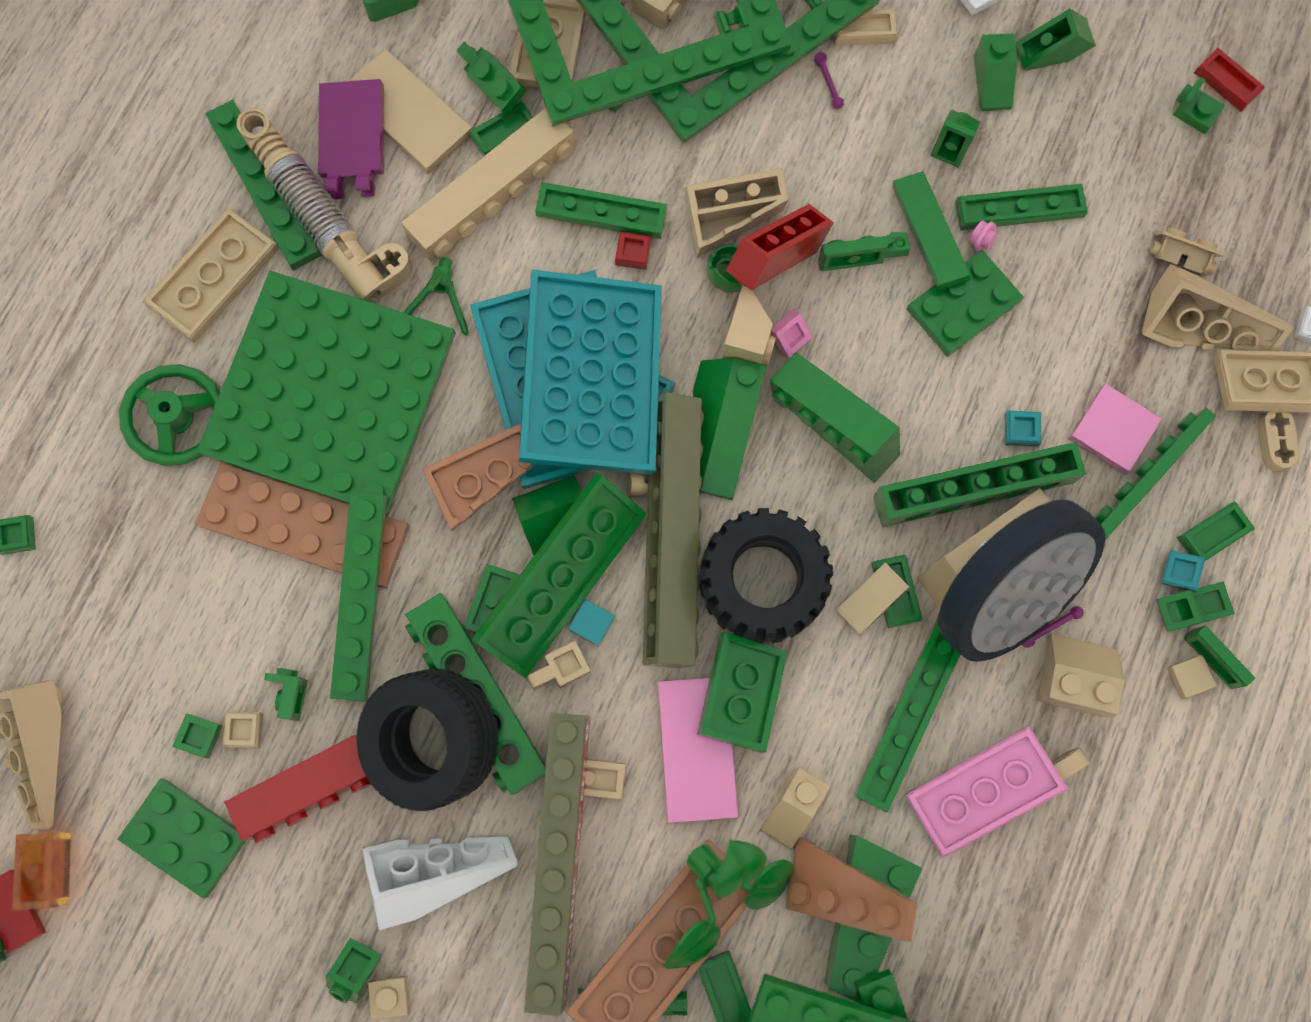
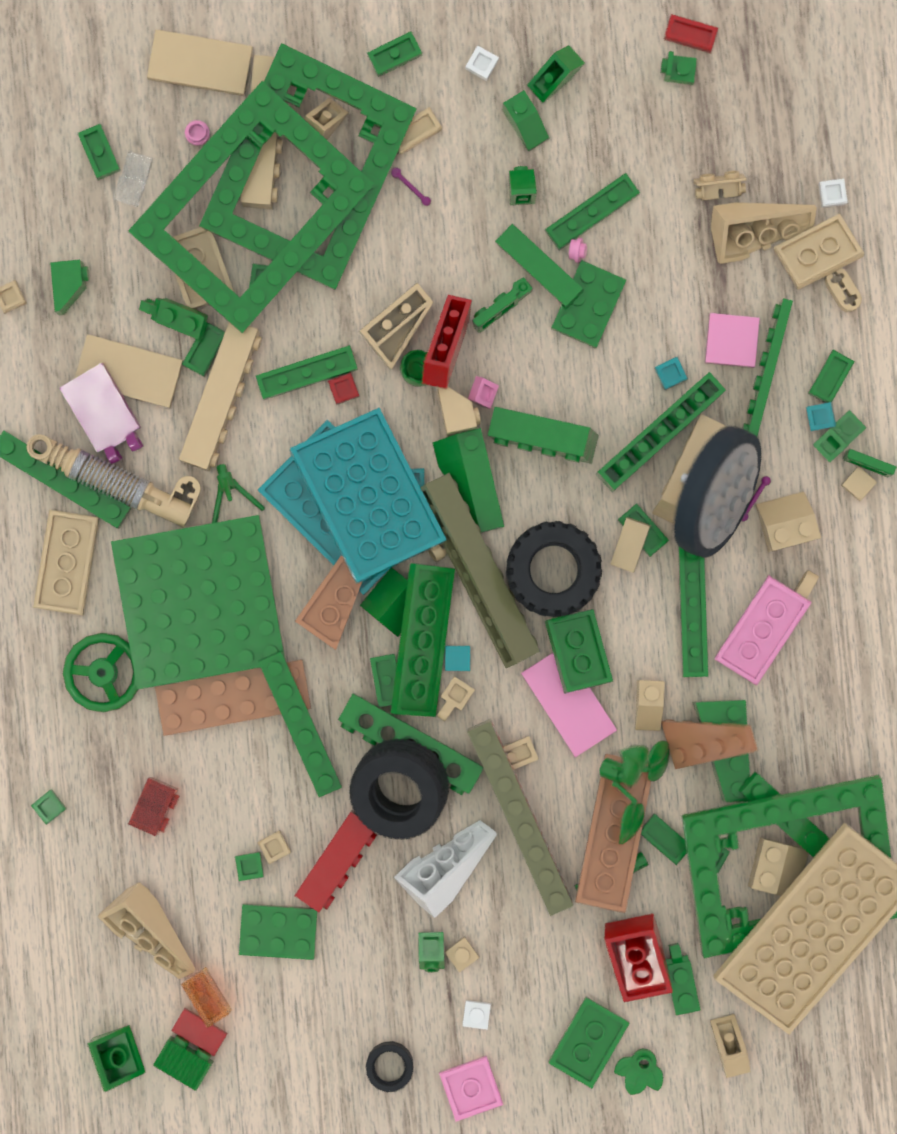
camera: 25 degrees left, 10 degrees up
(130, 600) = (153, 806): none -> clear red brick
(291, 698) = (294, 812): green bracket -> none

